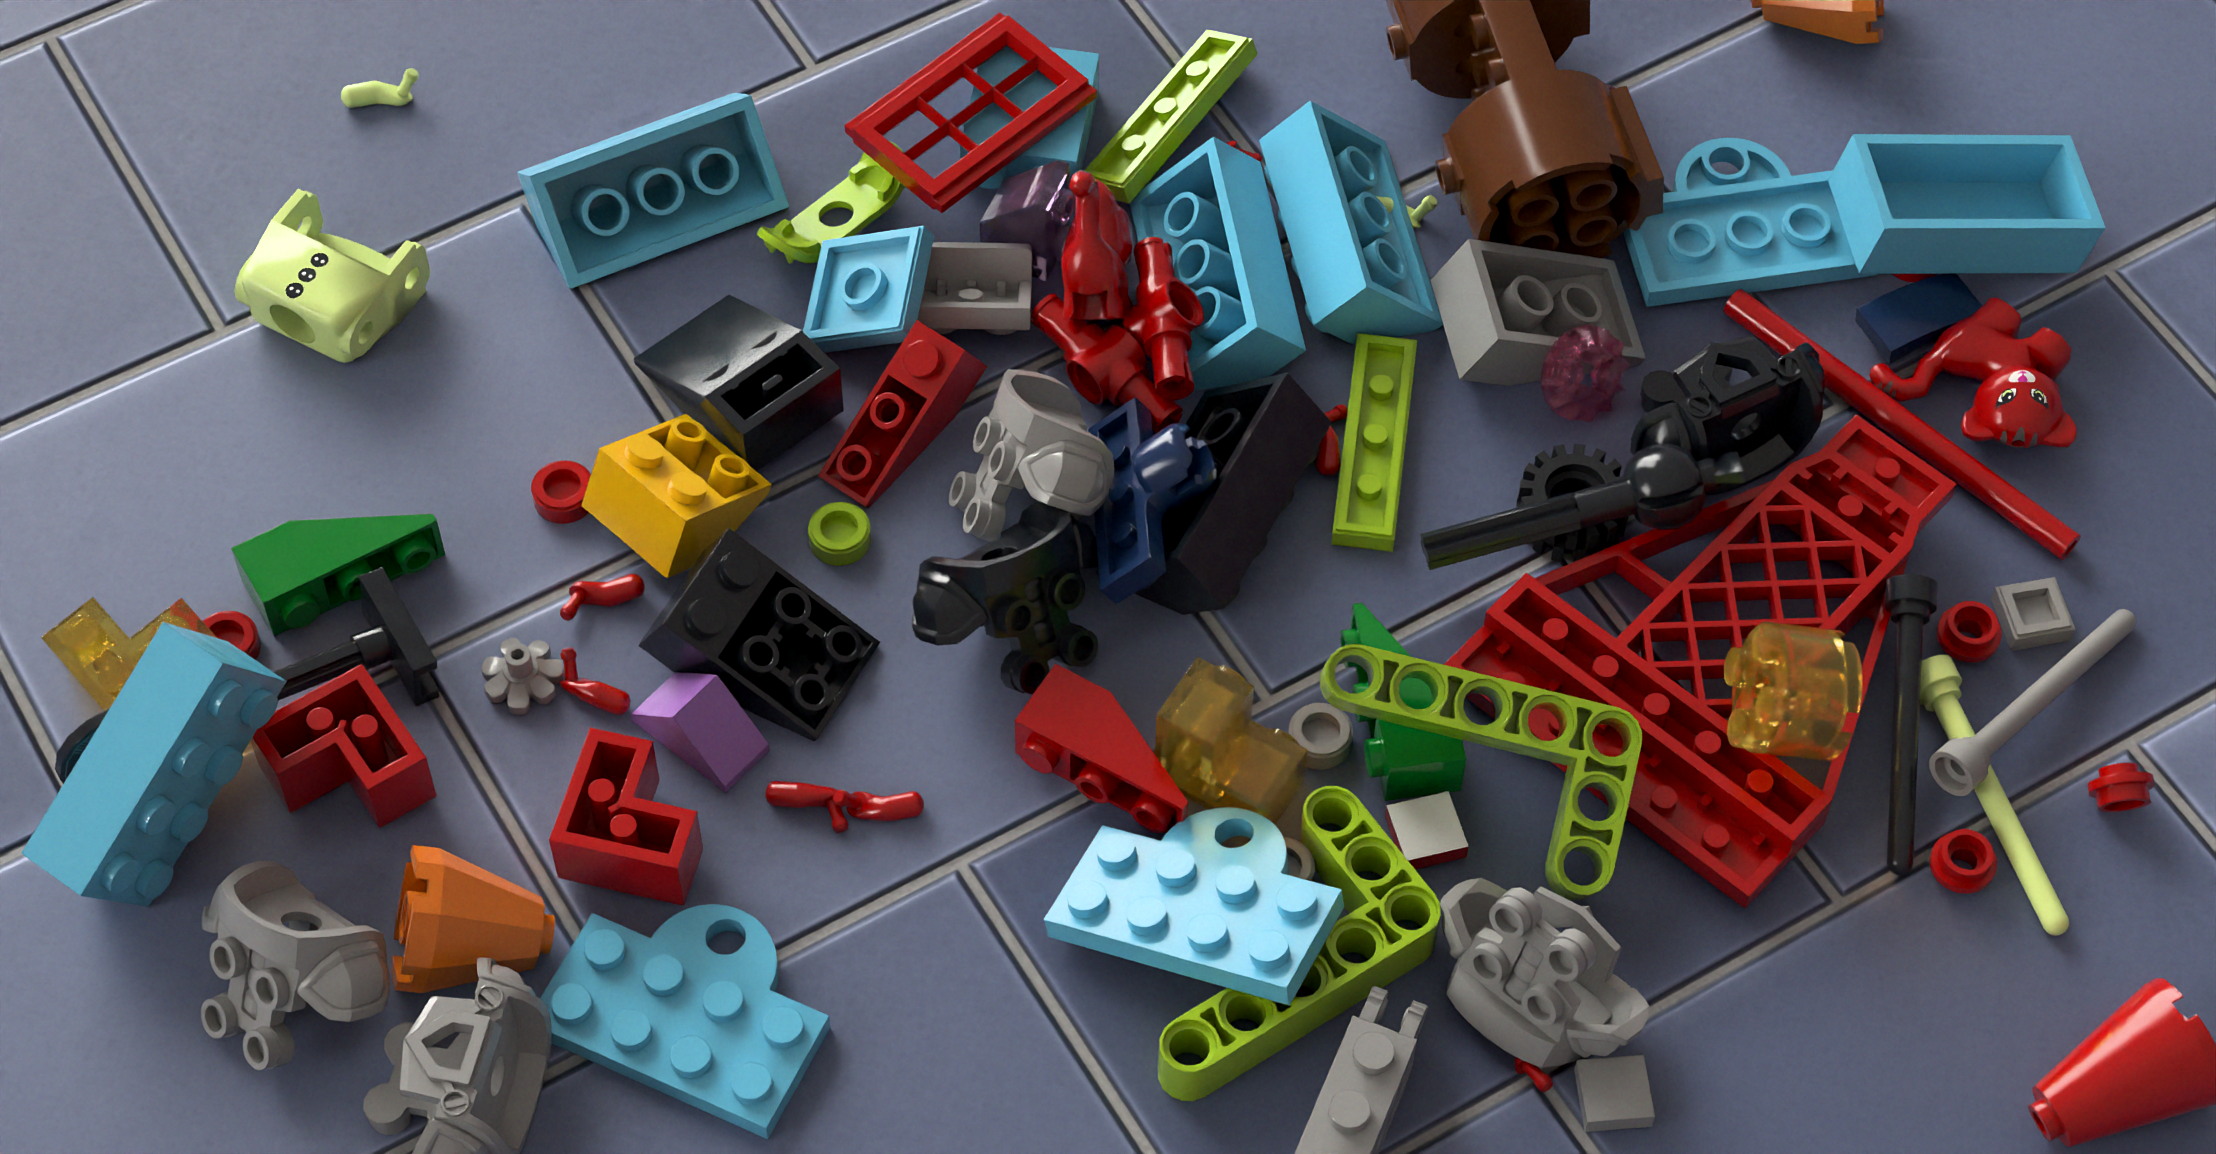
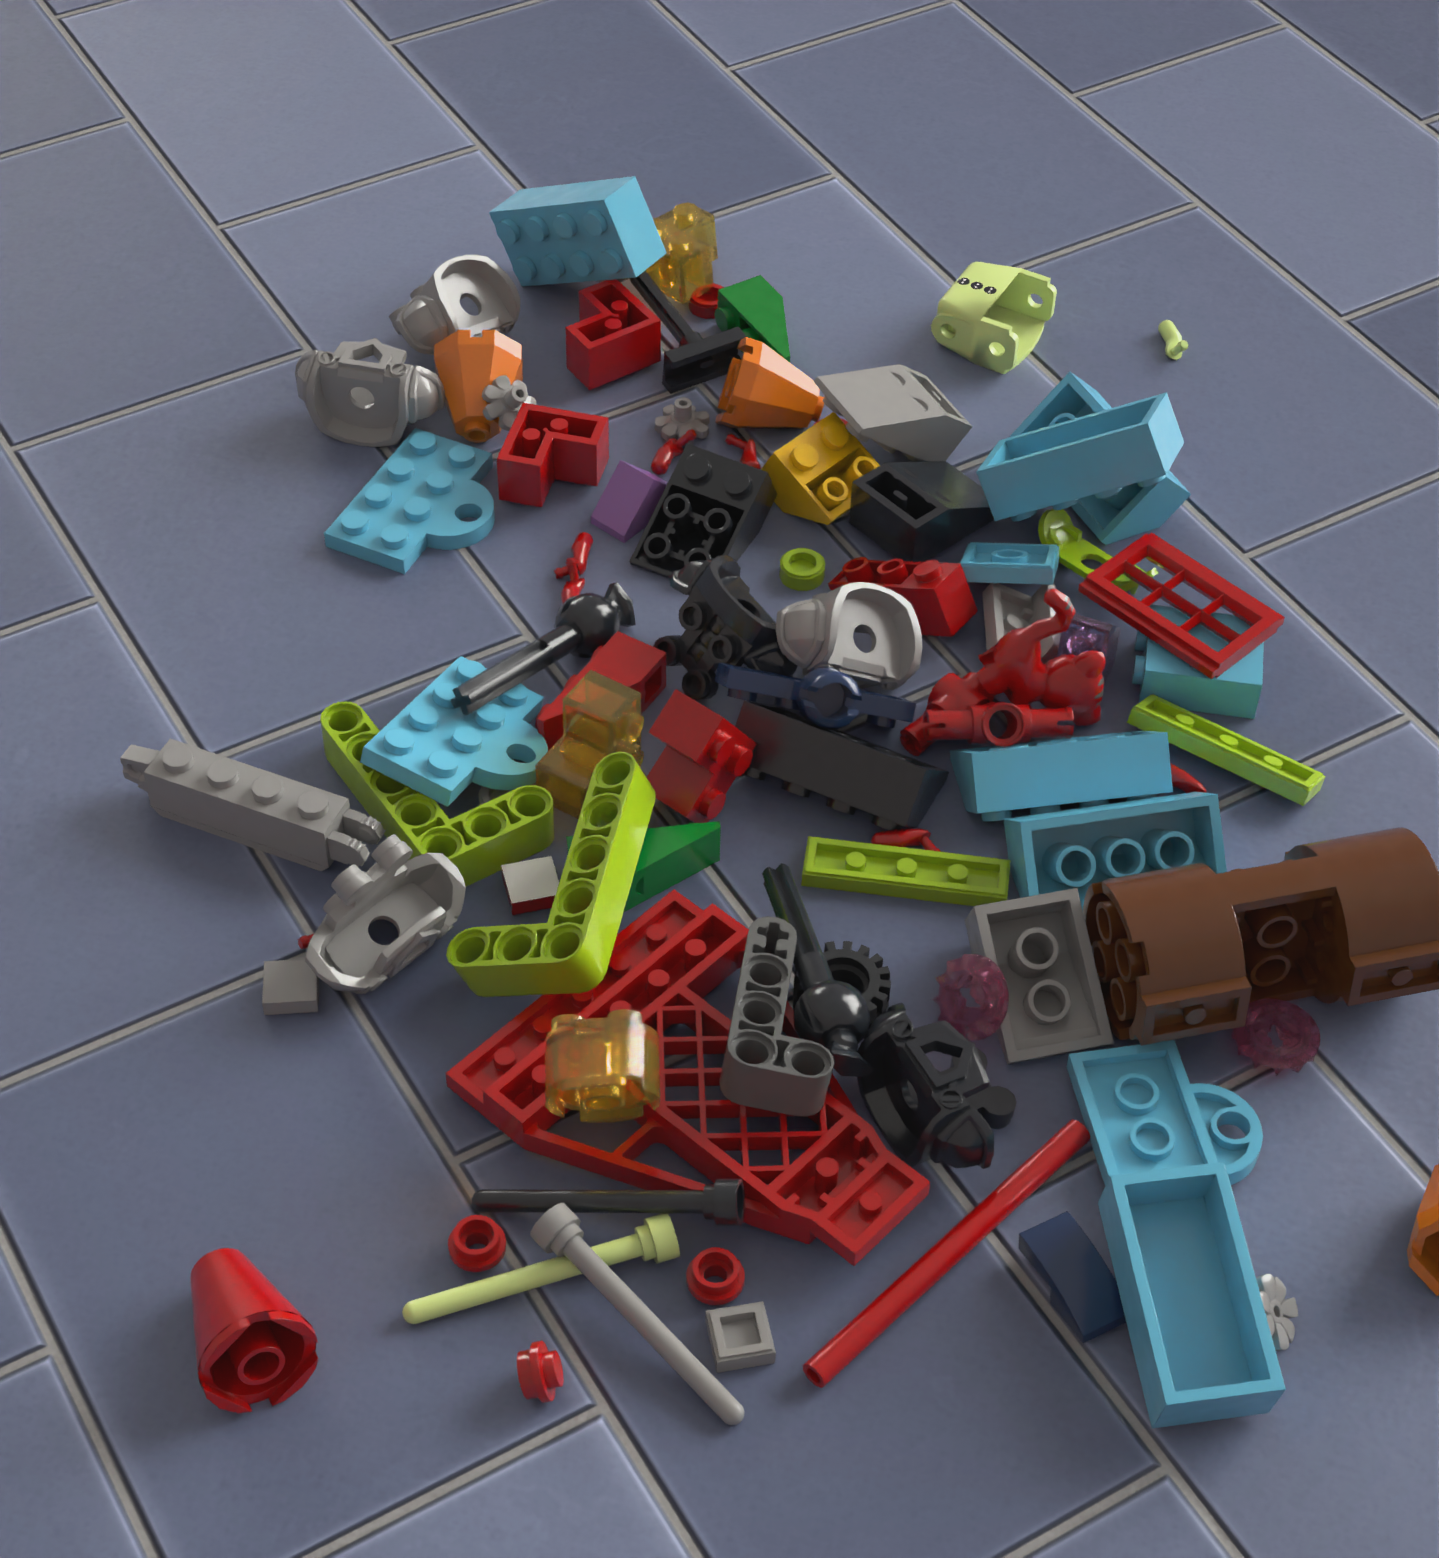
camera: 90 degrees right, 10 degrees down
(496, 562) = (767, 391): none -> orange cone
(528, 866) = (505, 400): none -> light grey plant
(580, 385) = (896, 411): none -> light grey slope
(730, 170) = (1081, 458): none -> medium azure piece
(988, 769) = (579, 629): none -> black piece
(1263, 619) = (699, 758): none -> red brick
(1679, 549) = (758, 1062): none -> dark grey beam
(2018, 391) = (973, 1339): red animal -> none

